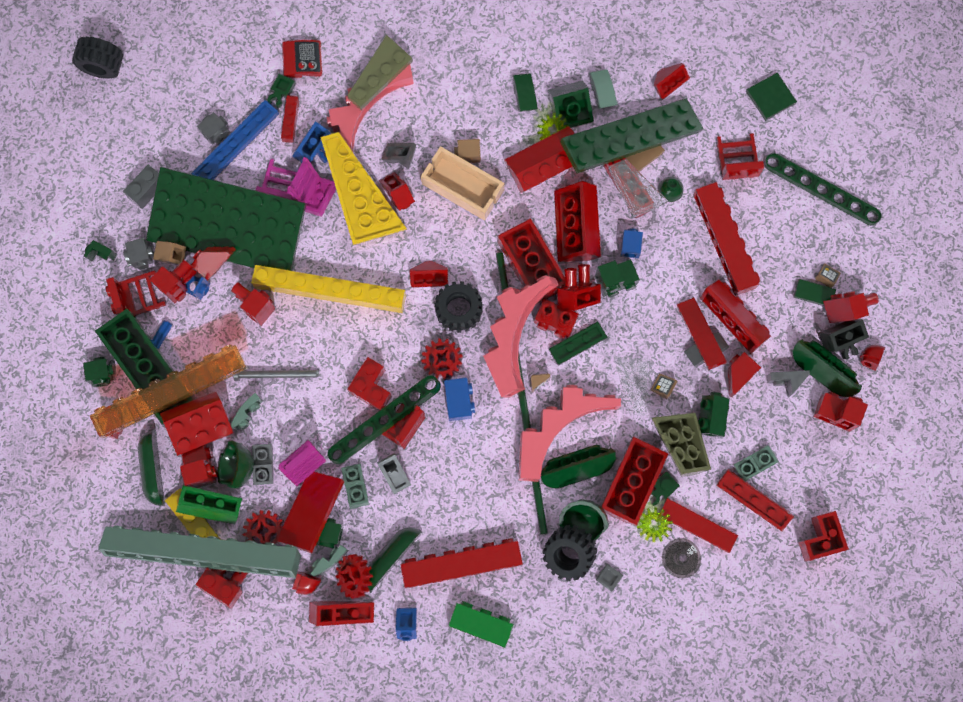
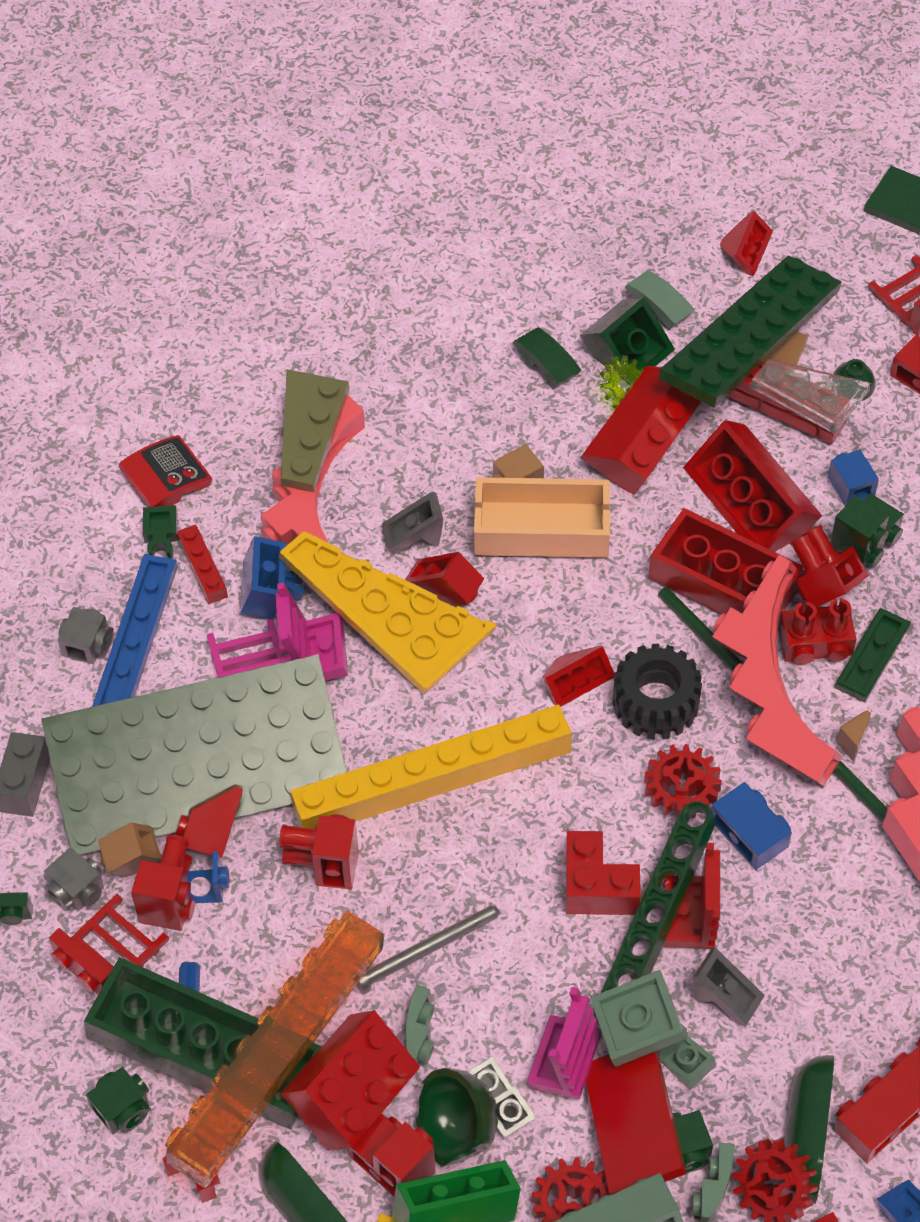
camera: 30 degrees left, 20 degrees down
(339, 467) = (637, 1018): none -> sand green plate

